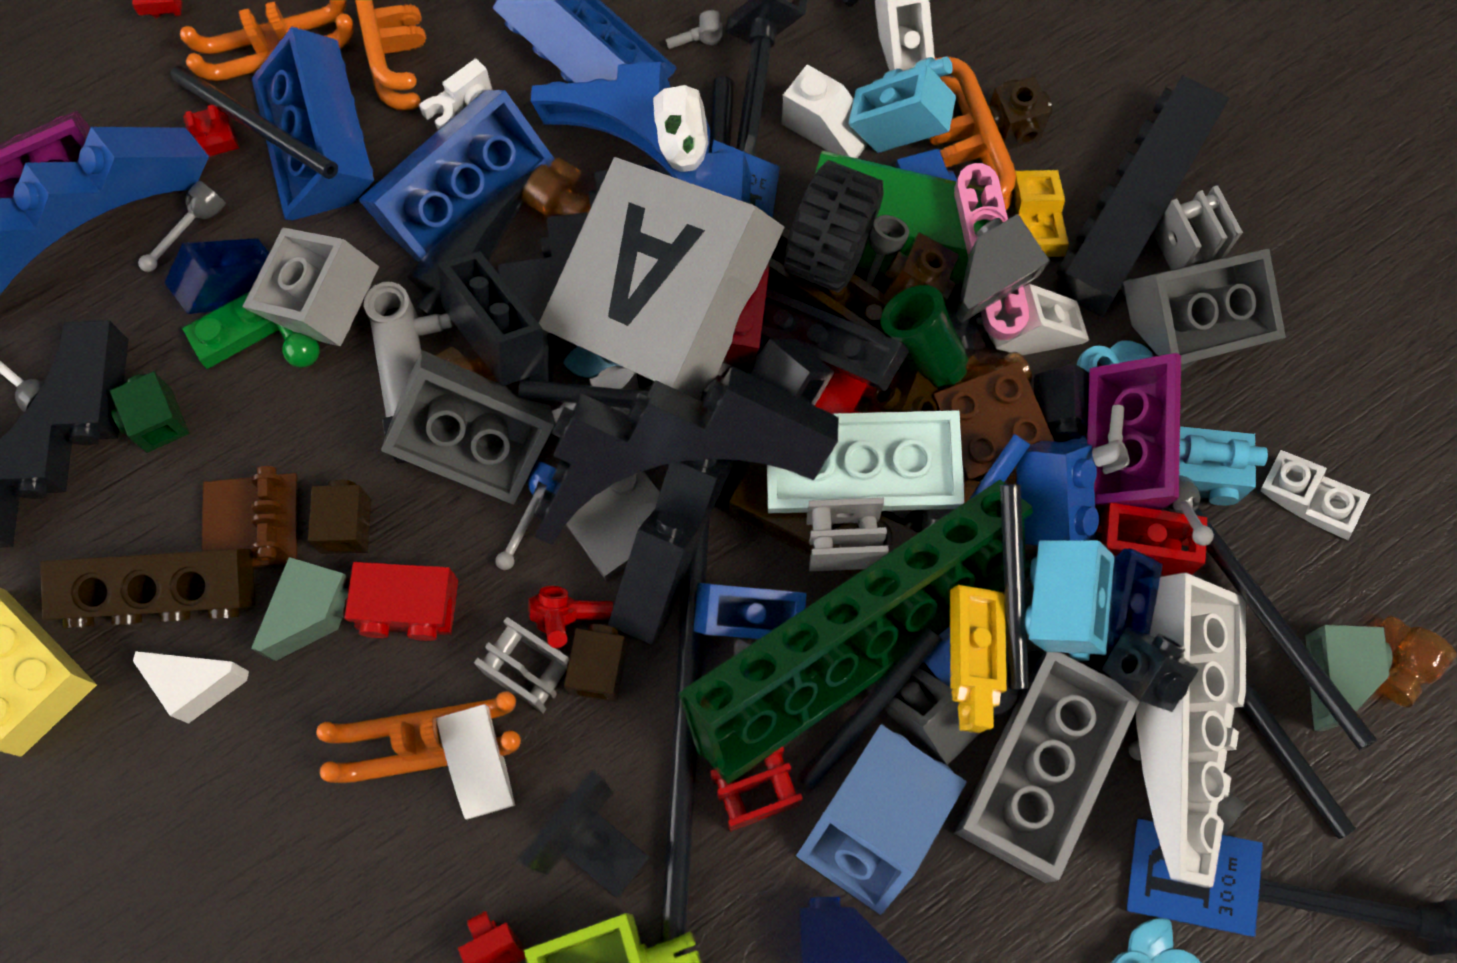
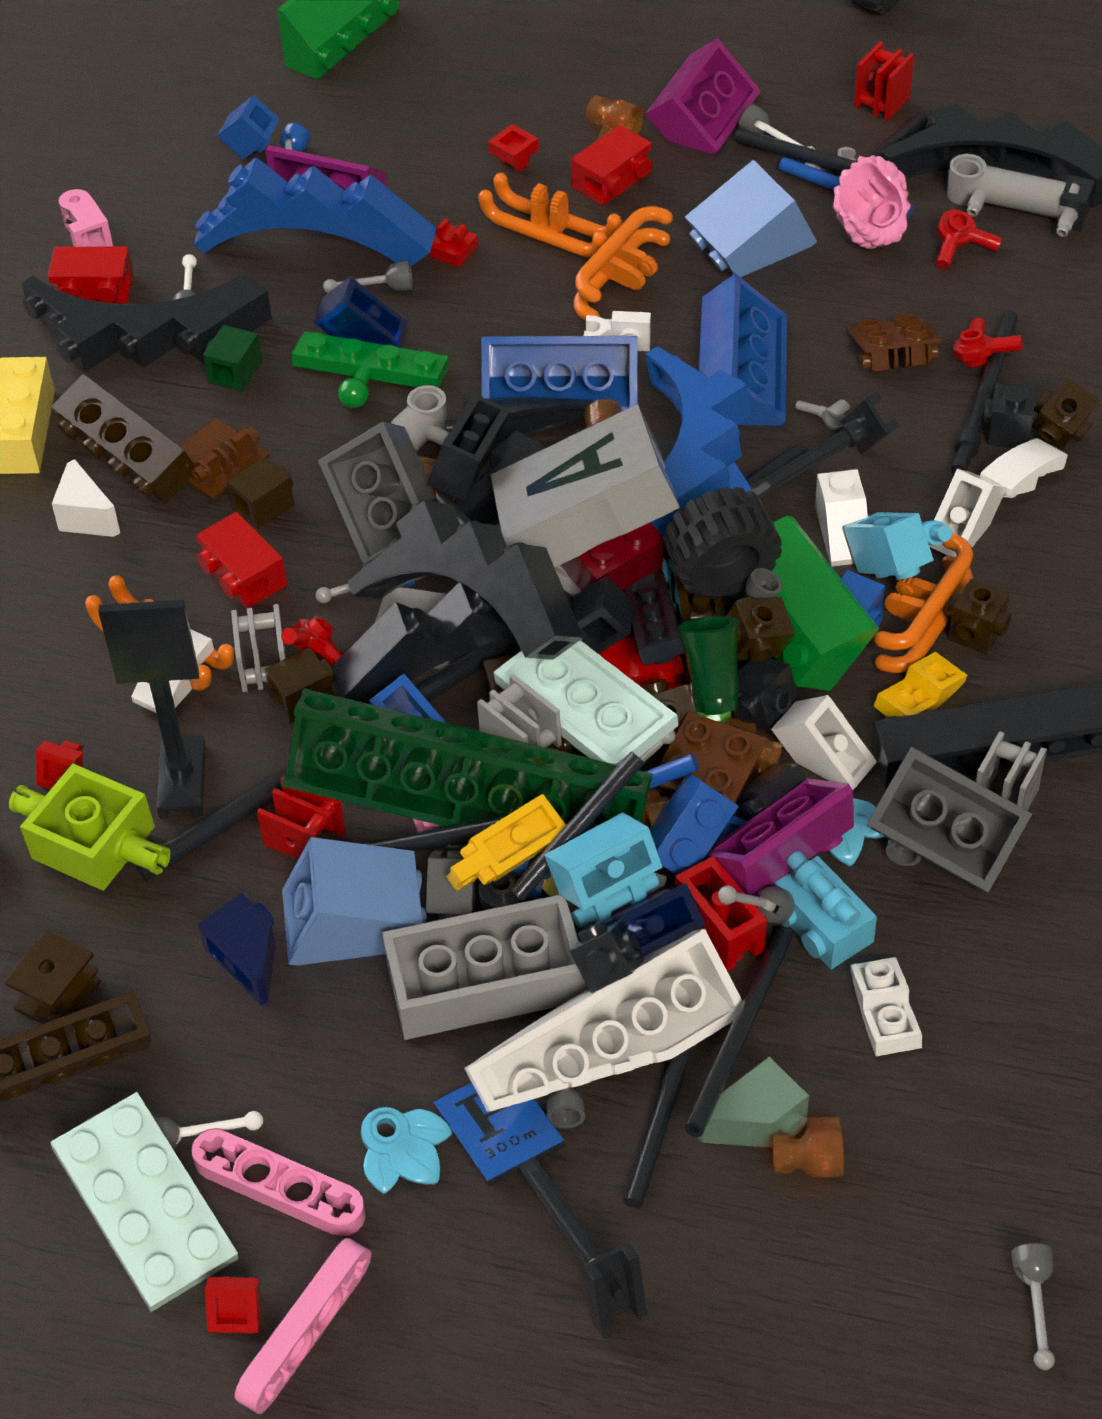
camera: 50 degrees right, 20 degrees down
(255, 122) = (475, 251): black piece -> none
(302, 609) = (178, 517): sand green slope -> none
(309, 96) = (513, 281): blue slope -> none
(312, 285) = (395, 357): light grey slope -> none
(681, 127) = (703, 421): white rock -> none
(967, 200) = (818, 650): bright pink beam -> none
(999, 264) = (798, 650): dark grey slope -> none
(1114, 454) = (750, 818): light grey hand -> none

